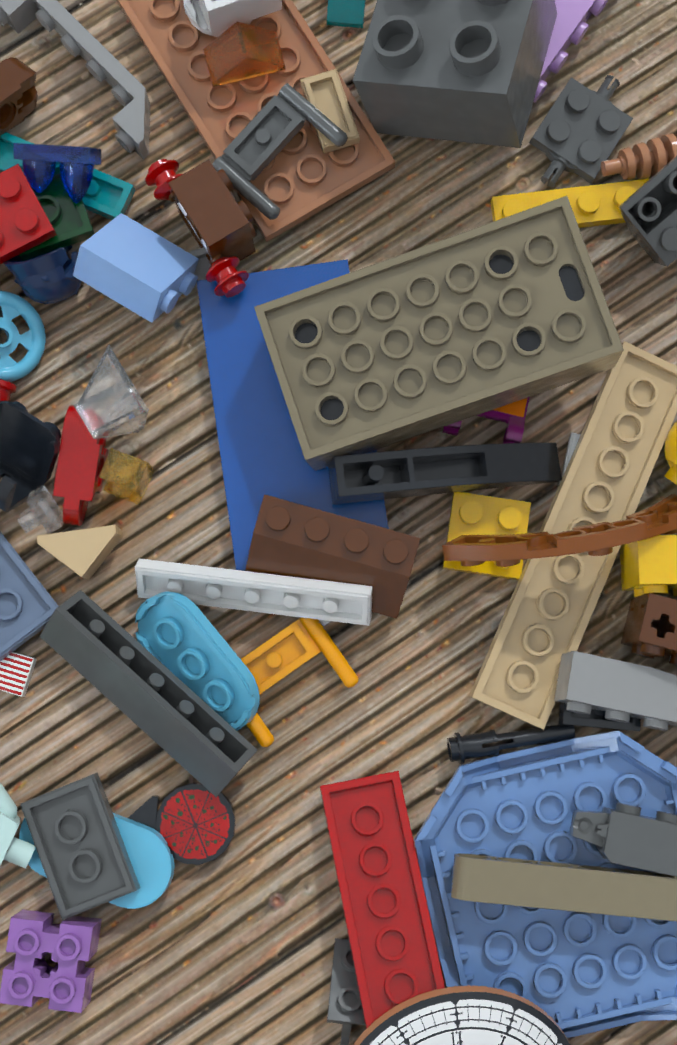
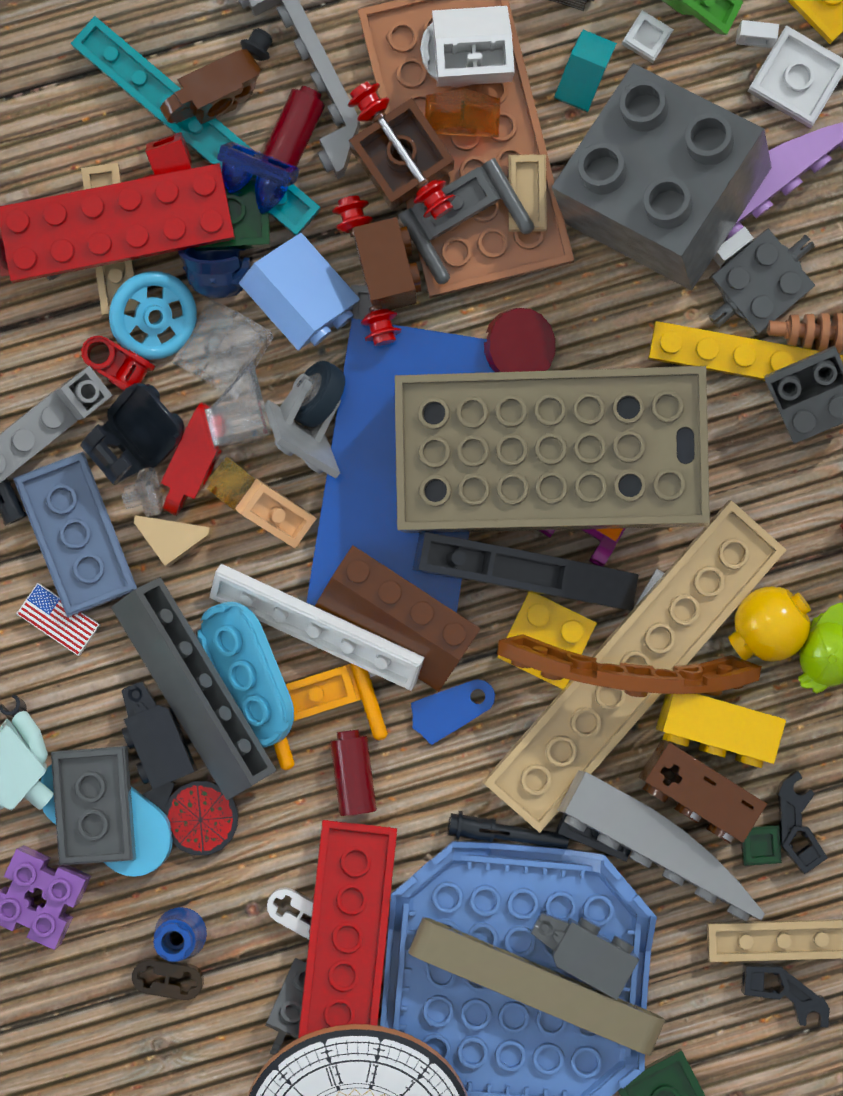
camera: 20 degrees right, 5 degrees up
(29, 53) = (258, 44): none -> black piece
(76, 344) = (222, 346): none -> clear slope
(86, 113) = (295, 125): none -> dark red brick
(124, 755) = (156, 737): none -> black hinge
(178, 491) = (275, 513): none -> light nougat plate
(182, 373) = (312, 405): none -> light grey plate
(193, 101) = (401, 152): none -> reddish brown brick
(213, 1012) = (167, 988): none -> dark brown beam
(217, 942) = (189, 925): none -> blue plant
(317, 900) = (290, 919): none -> white beam
(336, 729) = (353, 773): none -> dark red brick
(364, 244) = (519, 341): none -> dark red tile
(413, 634) = (450, 709): none -> blue piece
(543, 103) = (733, 246): none -> white tile

